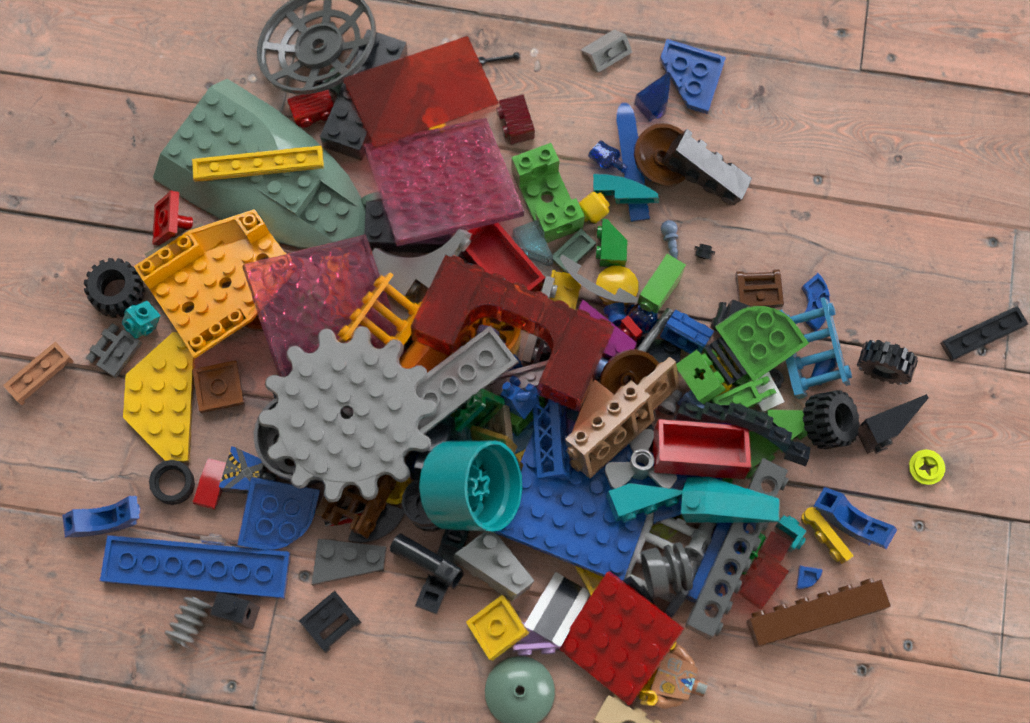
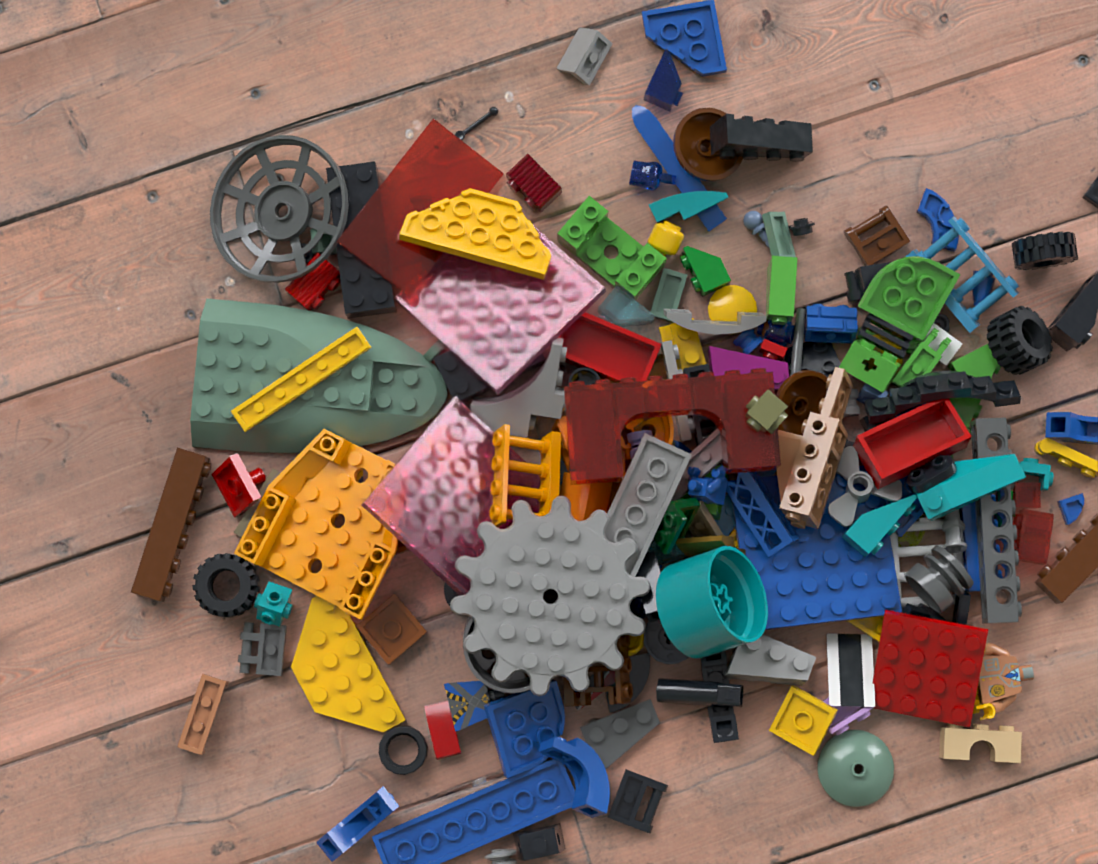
camera: 25 degrees left, 10 degrees up
(101, 224) = (171, 524): none -> reddish brown brick
(303, 573) = (588, 771): none -> blue arch
(455, 126) = (481, 230): none -> yellow plate
(591, 351) = (765, 412): none -> olive brick
(684, 246) = (778, 234): none -> sand green tile
(709, 480) = (931, 474): none -> black plate

